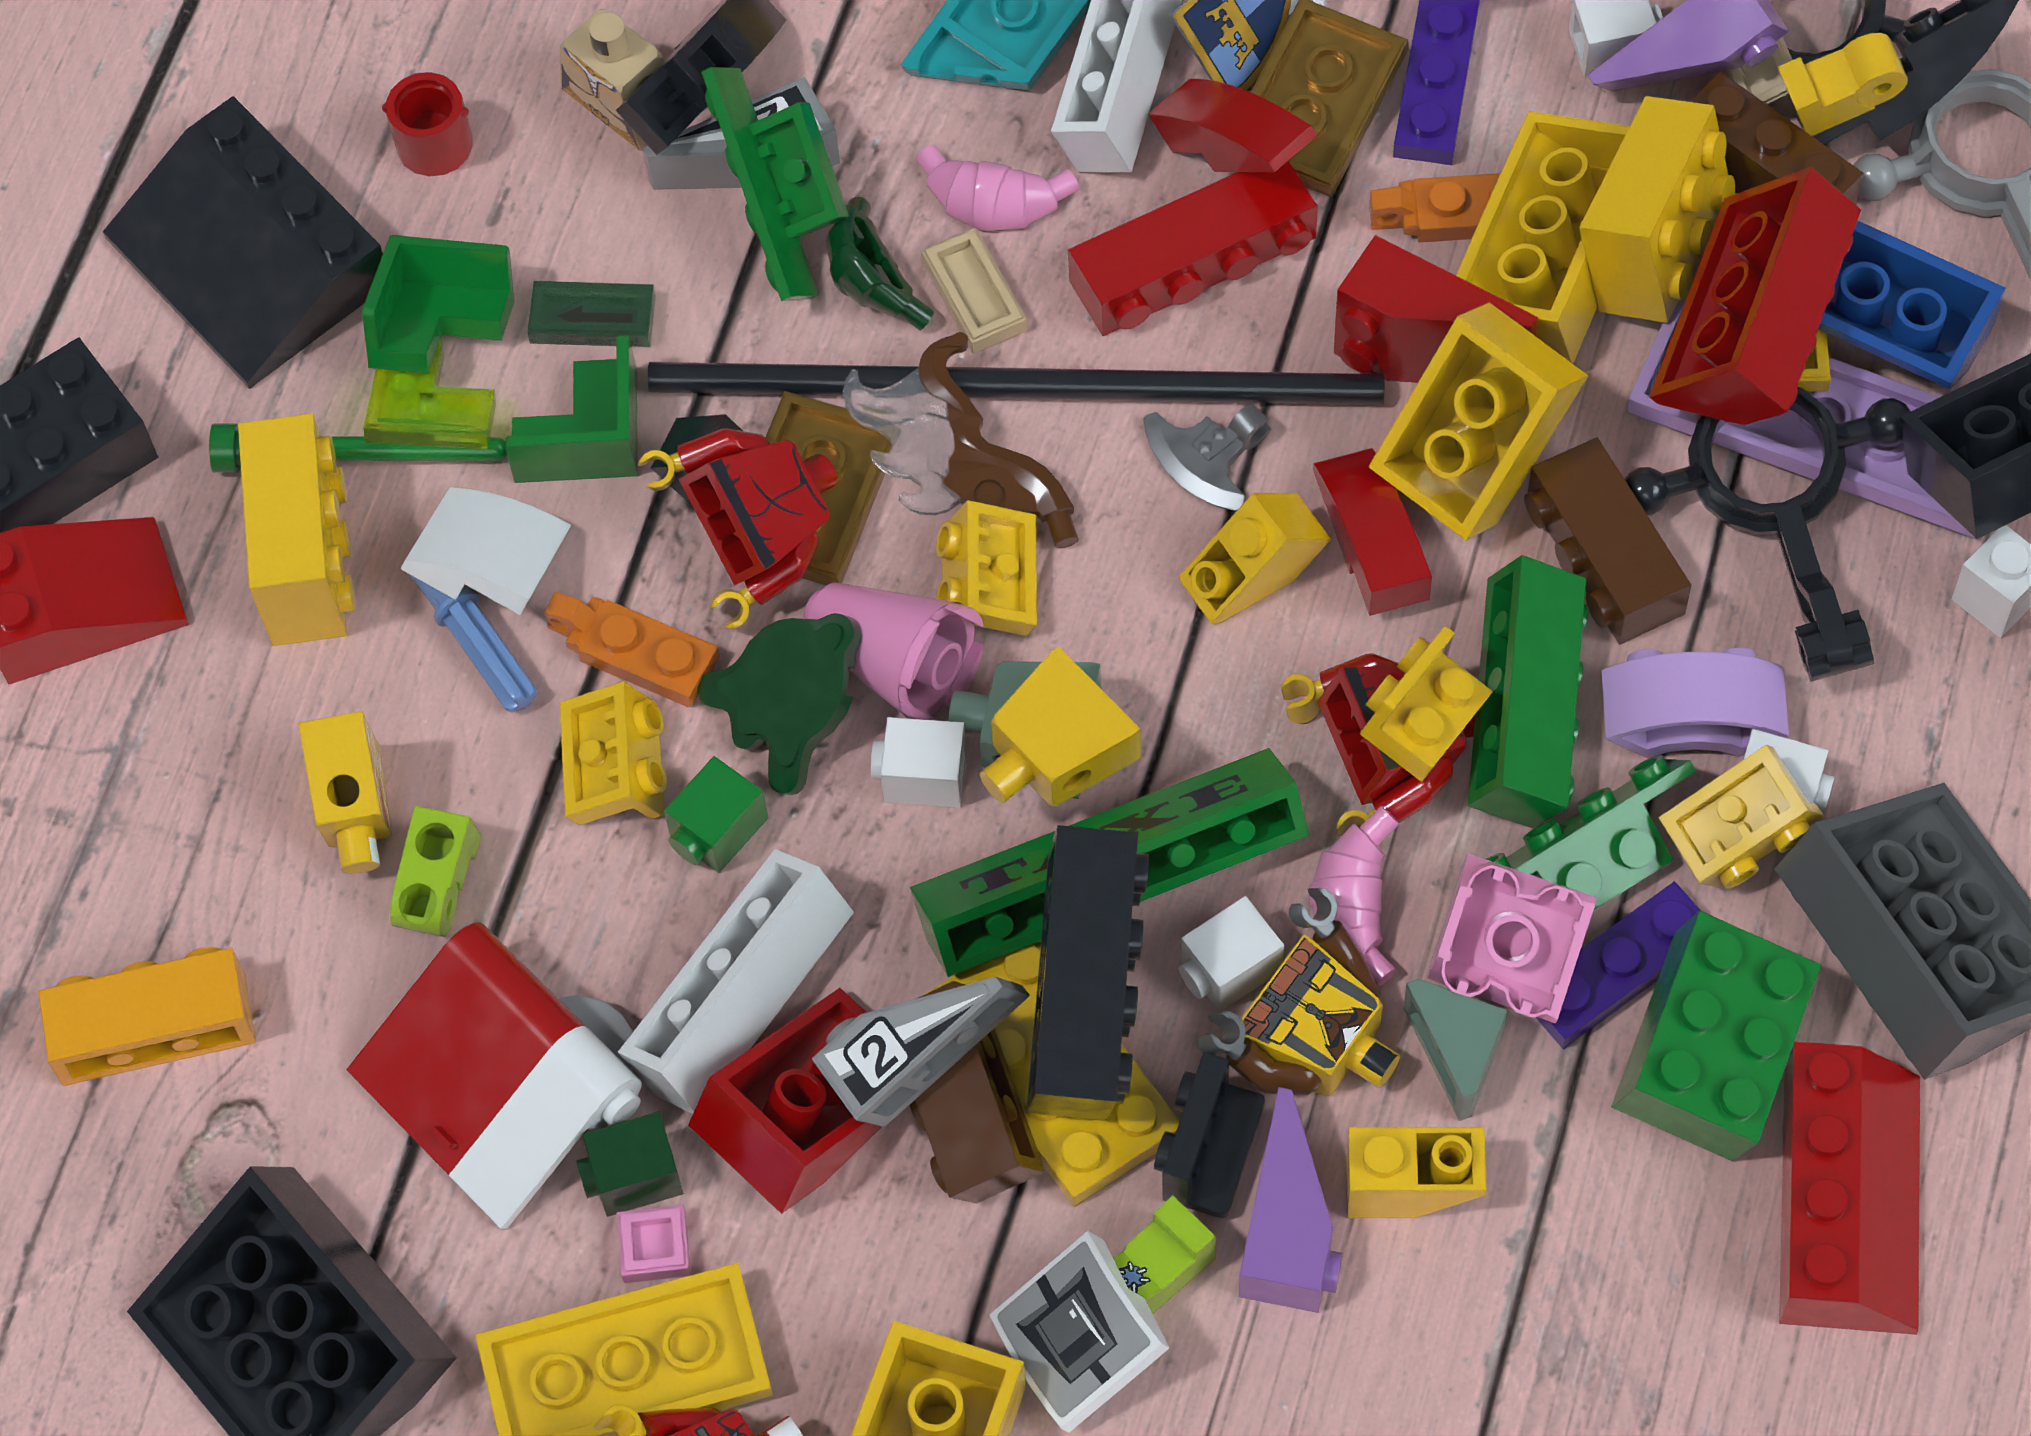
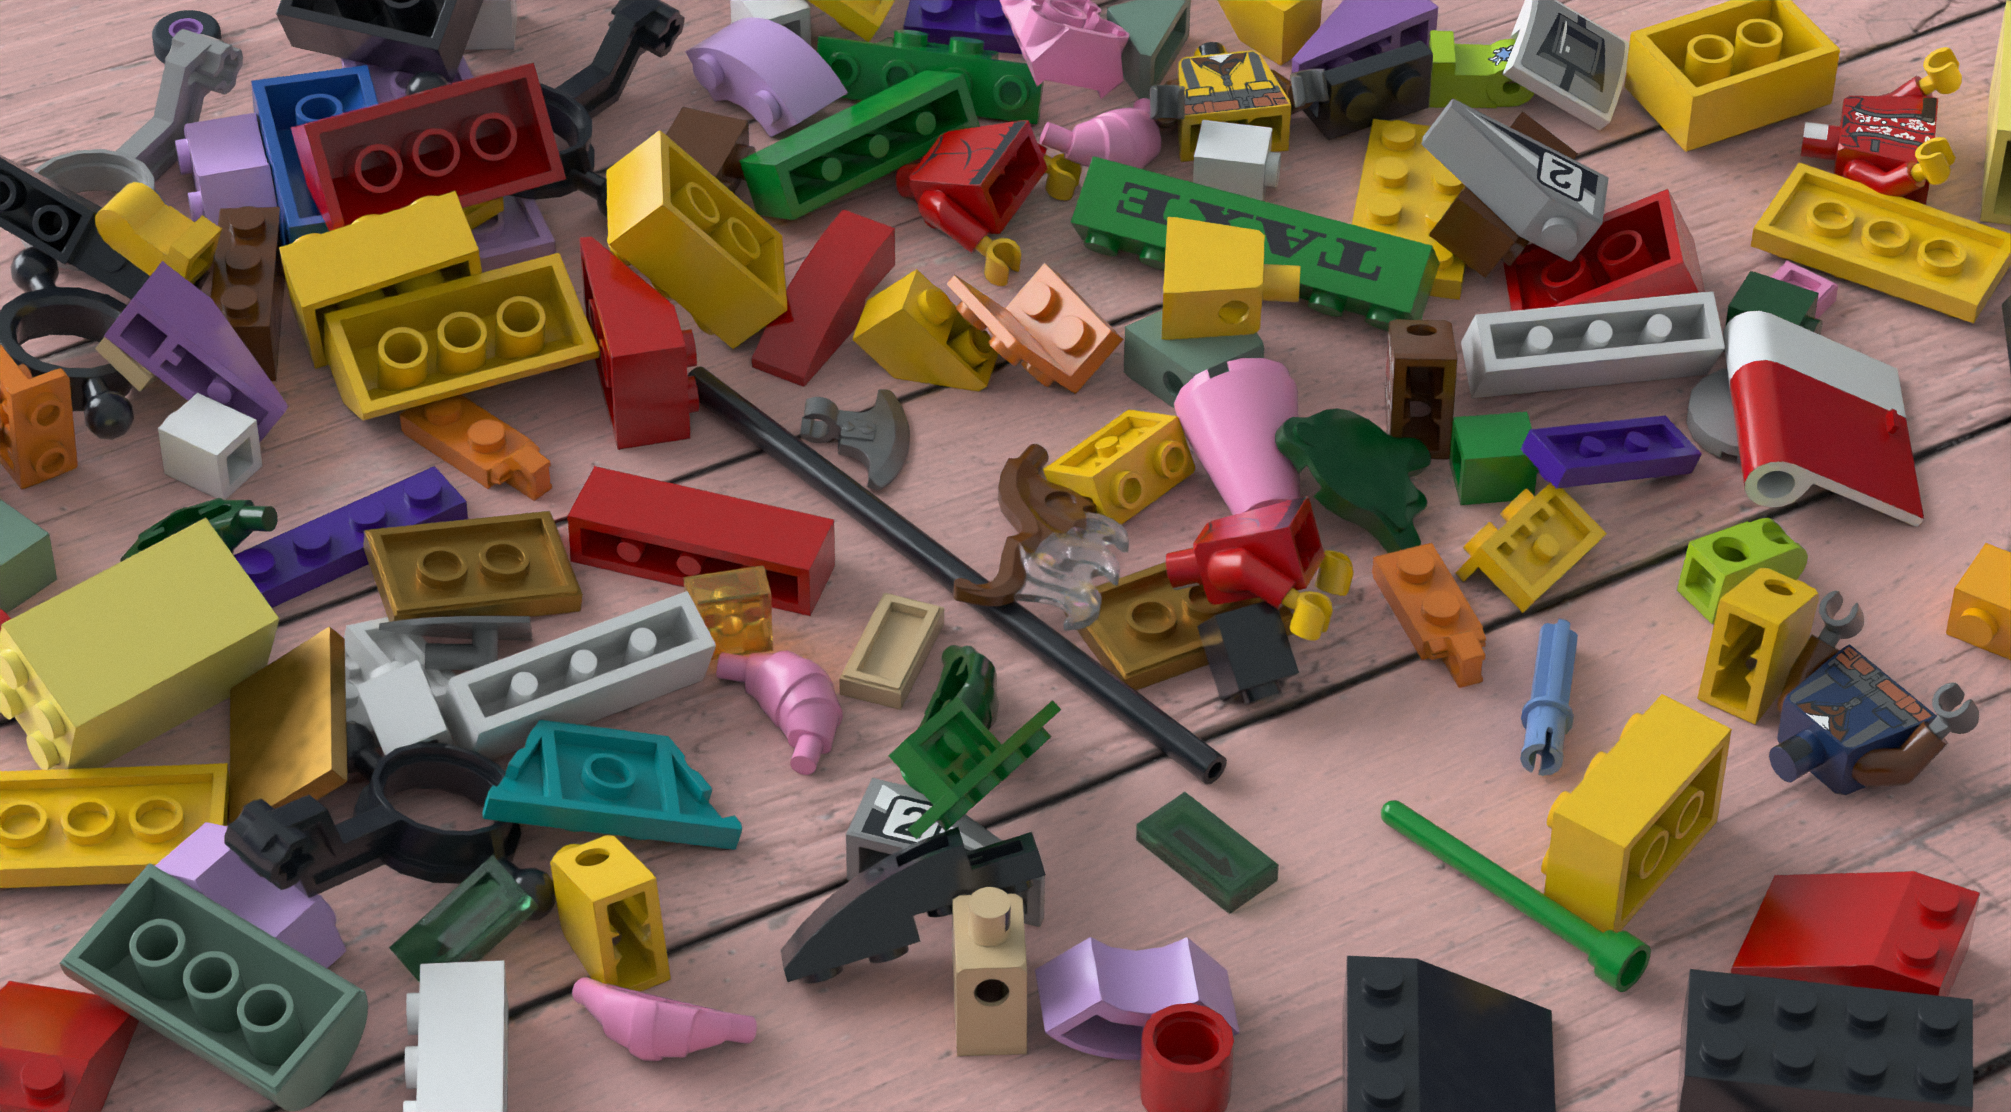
camera: 140 degrees left, 20 degrees down
(220, 779) = (1854, 720): none -> torso
(417, 412) = (1435, 874): clear neon green tile -> none
(434, 291) = (1326, 930): green panel -> none
(487, 545) = (1486, 716): white slope -> none
(507, 143) = (1104, 995): none -> lavender brick
(593, 440) = (1312, 748): green panel -> none
(619, 876) = (1610, 451): none -> dark purple plate
(835, 822) = (1421, 369): none -> reddish brown torso
(921, 762) = (1320, 376): white brick -> none
(1083, 973) = (1361, 126): black brick -> none
(1095, 192) = (734, 609): none -> clear yellow piece
(1178, 607) = (1044, 326): none -> orange bracket
(1230, 127) = (583, 539): red slope -> none
(1426, 708) = (954, 137): yellow bracket -> none
(1965, 239) = (225, 165): none -> lavender brick

